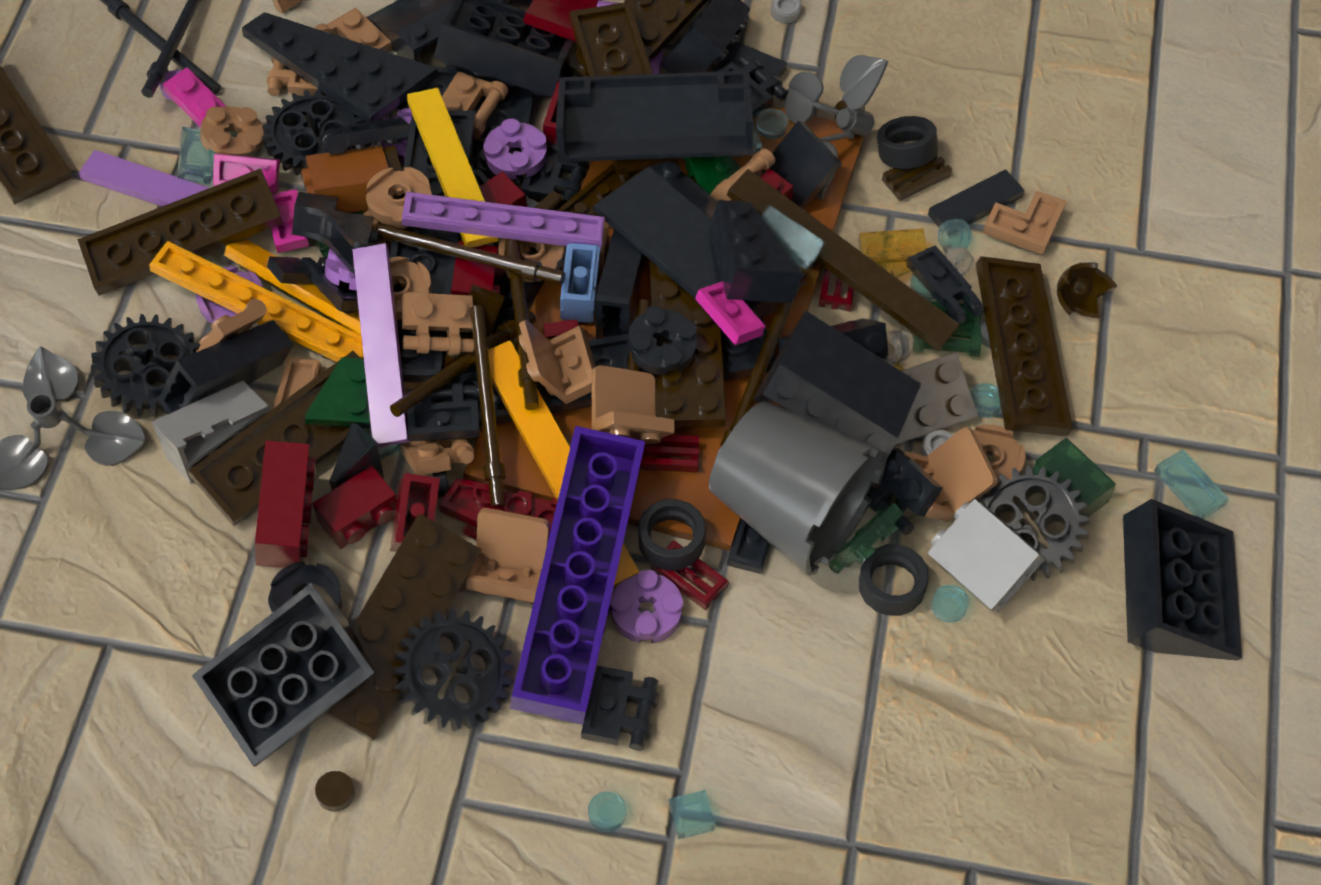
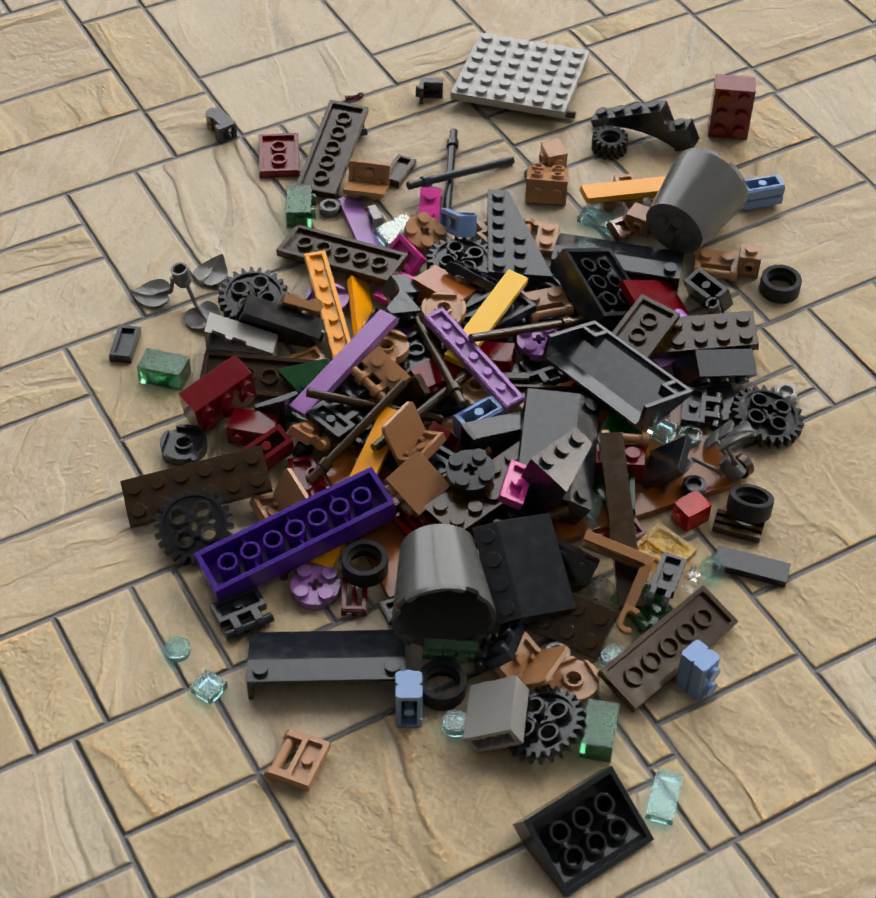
camera: 50 degrees right, 10 degrees down
(49, 217) = (299, 205): none -> clear green brick
(67, 550) = (125, 344): none -> black tile
(81, 192) = (329, 208): none -> dark grey tile
(89, 123) = (368, 179): none -> medium nougat bracket
(99, 86) = (400, 169): none -> tile
(156, 158) = (375, 217): none -> light grey plate
(162, 535) = (164, 369): none -> clear green brick
(261, 92) = (458, 223): none -> medium blue plate
(285, 673) = (126, 457): black slope -> none
(289, 270) = (361, 307): black tile -> none
(334, 791) = (88, 530): dark brown tile -> none
(521, 110) = (561, 323): none -> dark brown bar
(762, 667) = (323, 657): none -> black slope
(796, 240) = (599, 481): clear light blue tile -> none
(806, 43) = (770, 415): none -> black gear
(845, 173) = (692, 483): none -> black tile
(867, 196) = (691, 511): none -> red brick
(885, 784) = (304, 764): none -> medium nougat plate
(898, 621) = (408, 698): none -> medium blue brick
(934, 299) = (627, 556): none -> medium nougat hinge
(1028, 229) = (762, 603): medium nougat plate -> none
(1083, 339) = (698, 670): none -> medium blue brick
(1086, 296) = (739, 661): dark brown piece -> none

